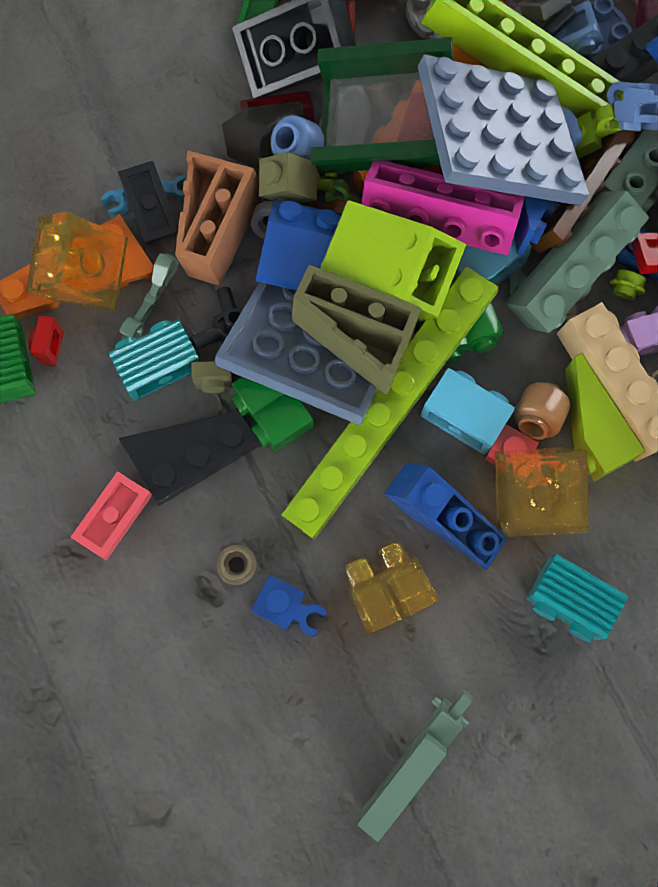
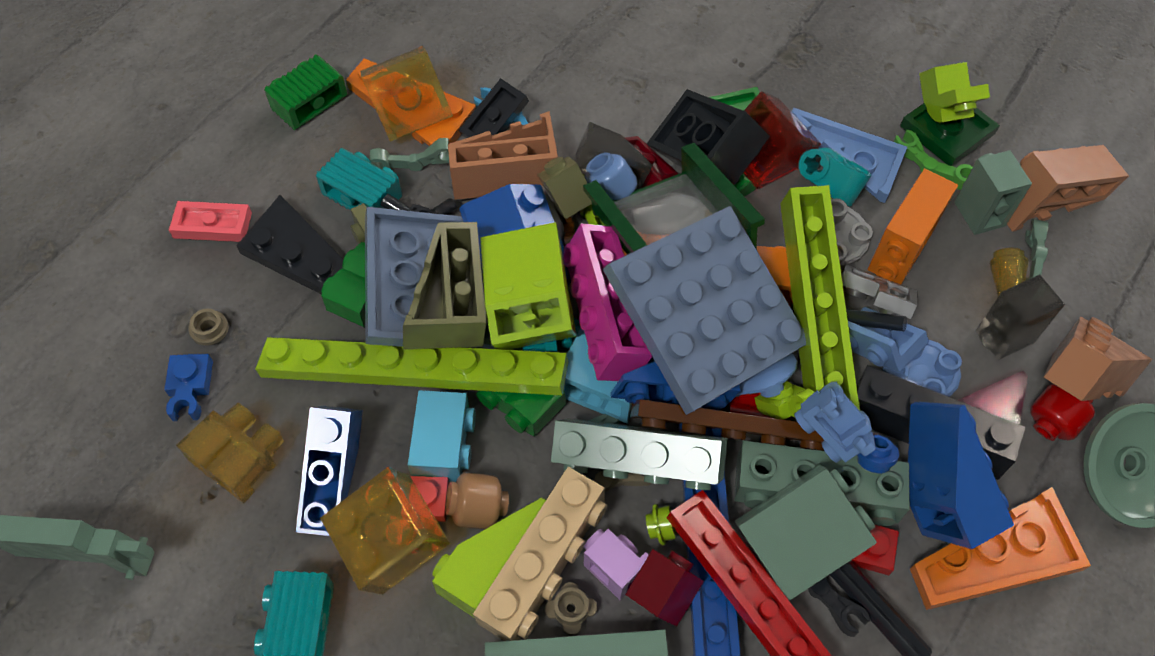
camera: 65 degrees right, 15 degrees down
(46, 340) = (336, 111): red plate -> none

